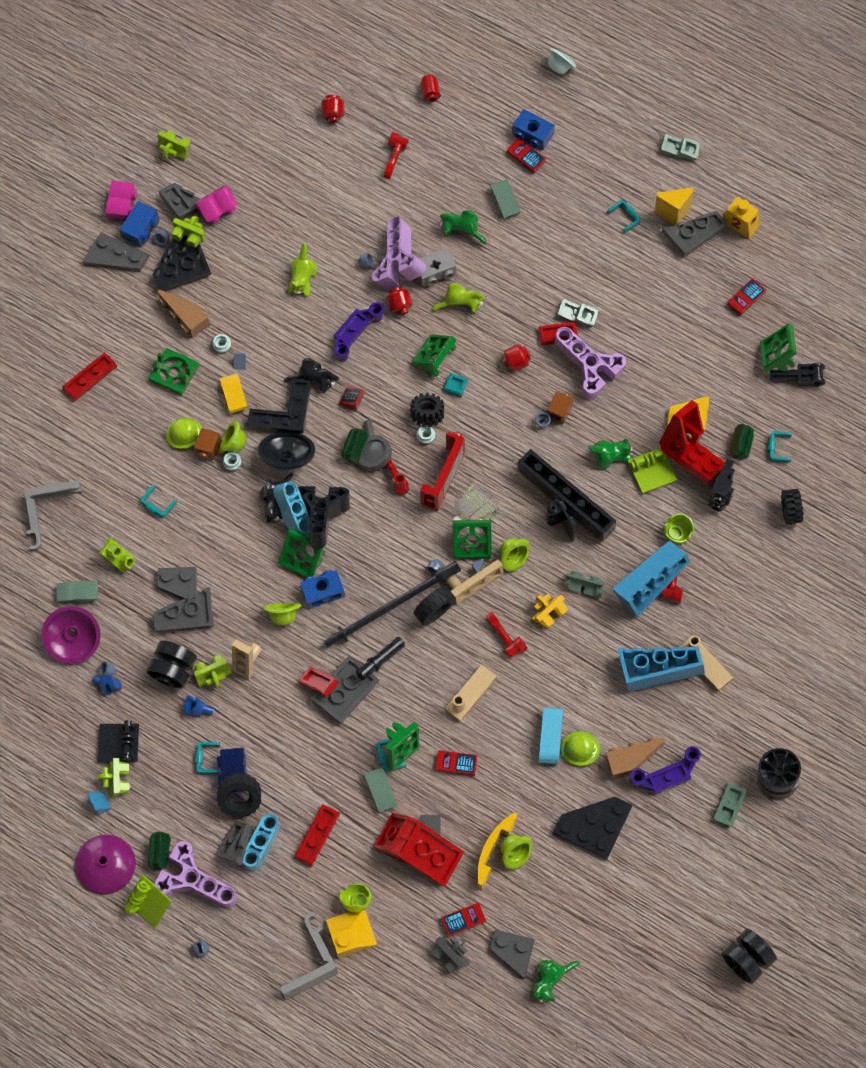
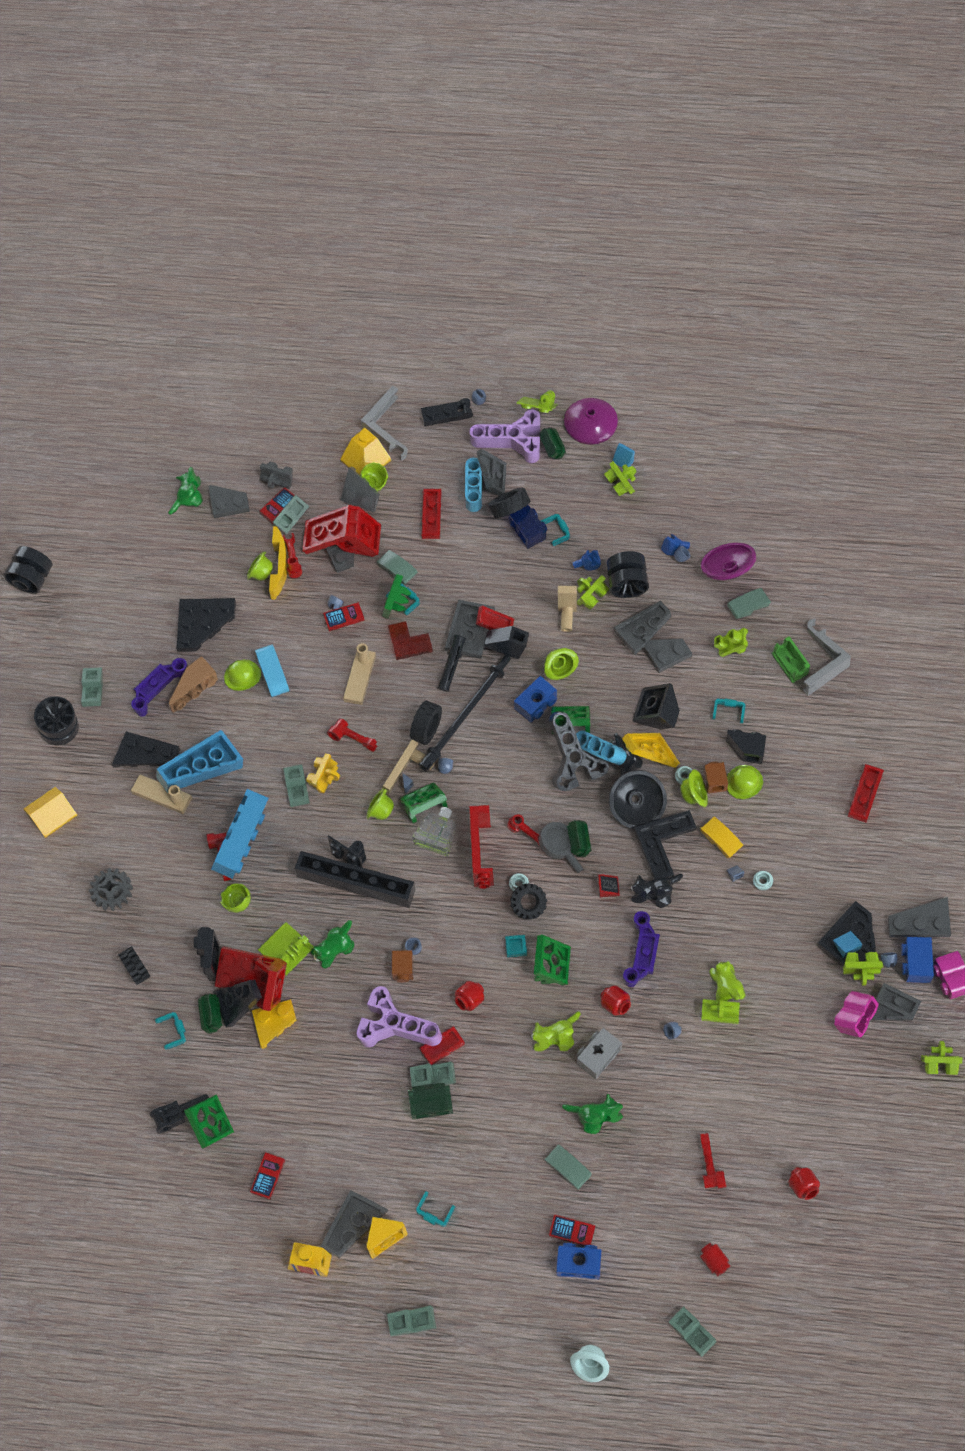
camera: 155 degrees right, 5 degrees down
(75, 519) = (791, 660): none -> bright green hinge
(118, 742) = (636, 506): black hinge -> none
(161, 456) = (746, 745): none -> black slope
(168, 354) = (804, 820): green piece -> none
(188, 255) = (847, 943): none -> dark azure slope
(189, 314) = (812, 890): medium nougat slope -> none
(220, 530) = (657, 707): none -> black slope
(243, 945) = (447, 412): none -> black plate
(248, 489) = (652, 747): none -> yellow wing
(318, 653) = (507, 641): none -> black slope
(322, 253) = (720, 1011): none -> lime hips
(377, 887) = (359, 492): none -> dark grey wing
(398, 257) = (635, 1032): lavender beam -> none
(410, 702) = (408, 646): none -> clear red tile
(457, 780) = (334, 601): none -> sand blue hinge
(460, 898) = (290, 514): none -> sand green slope
(474, 53) = (692, 1331): none -> sand green slope
(476, 852) = (294, 568): none -> red brick
(576, 581) = (297, 815): sand green hinge -> none
(578, 612) = (296, 785): none -> sand green slope
(589, 291) = (430, 1101): none -> clear green brick
(705, 713) = (142, 750): none -> black wing
(715, 432) = (237, 1001): none -> black wing
(795, 592) = (114, 896): none -> dark grey gear
(817, 695) = (50, 812): none -> yellow slope

